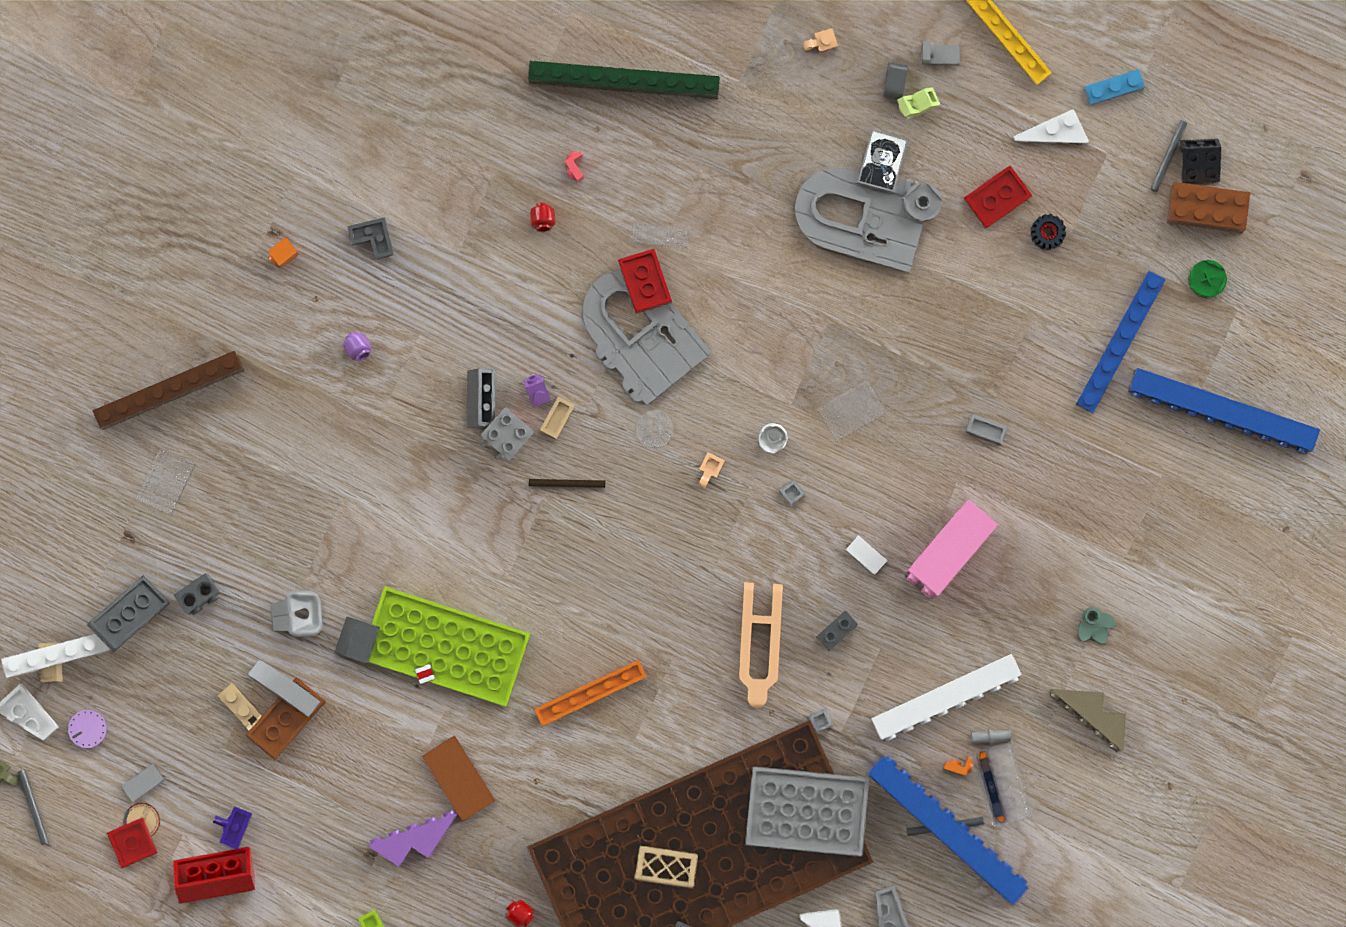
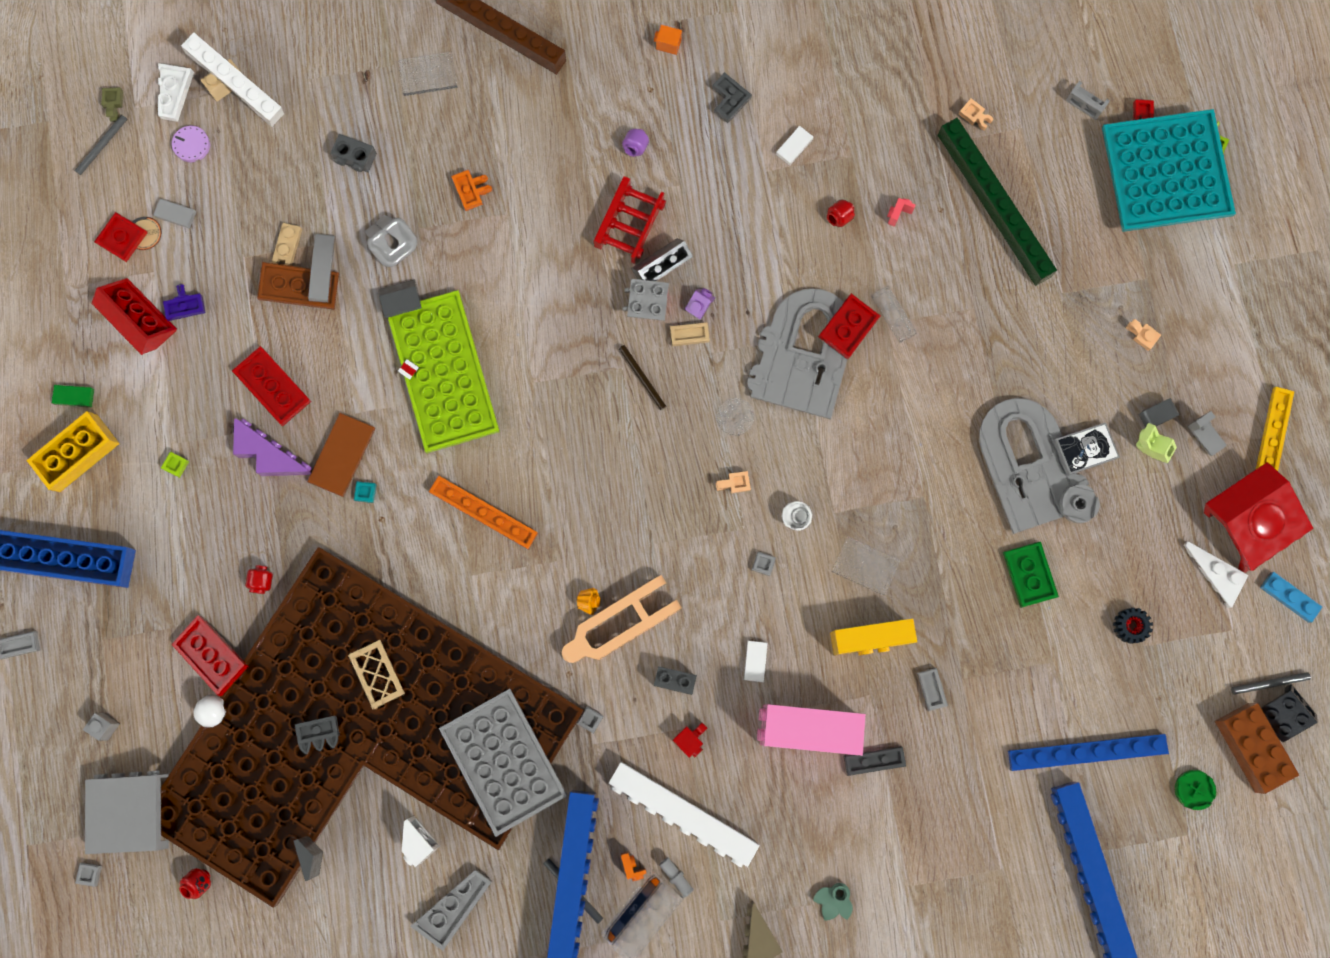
camera: 50 degrees right, 5 degrees down
(128, 613) = (300, 110): dark grey tile -> none
(299, 518) = (467, 190): none -> orange hinge
(358, 798) = (271, 386): none -> red plate
(405, 399) = (618, 205): none -> red fence
(454, 212) = (794, 145): none -> white tile
(504, 779) = (365, 492): none -> teal tile
(532, 40) = (973, 113): none -> light nougat plate
(724, 656) = (588, 600): none -> light orange piece
(892, 652) = (689, 741): none -> red brick
(913, 447) = (871, 637): none -> yellow brick
(951, 282) = (1030, 574): none -> green tile
(997, 197) = (1128, 563): red tile -> none
(1010, 515) = (875, 761): none -> dark grey tile
(1033, 67) = (1260, 515): none -> red panel

